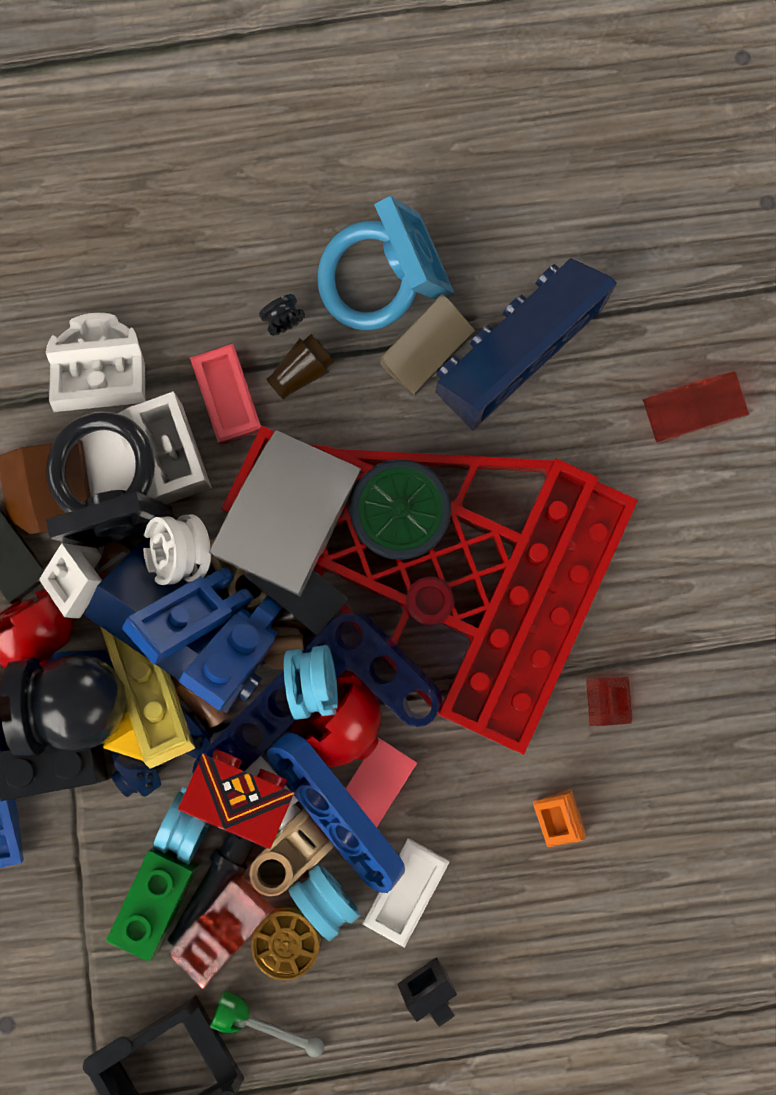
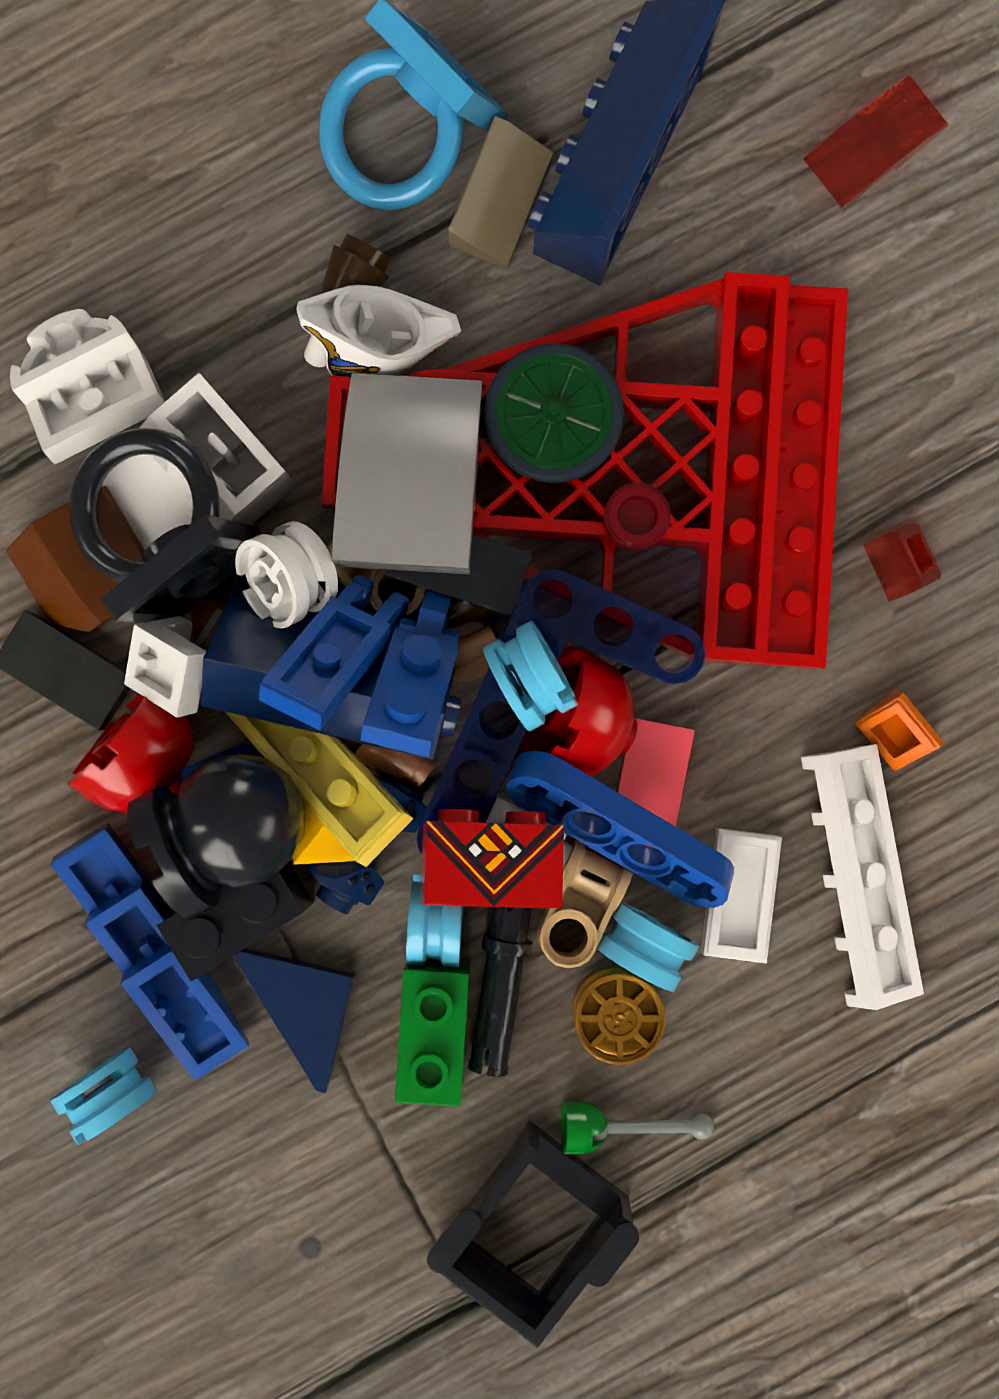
camera: 20 degrees left, 5 degrees up
(72, 850) = (304, 1004): none -> dark blue tile
(221, 931) = (534, 1033): clear red slope -> none
(226, 394) = (267, 357): coral tile -> none
(281, 314) = (297, 224): black bush -> none
(302, 406) = (372, 330): none -> white hat
(428, 992) = (819, 1006): black tile -> none
(497, 913) = (866, 877): none -> white hinge

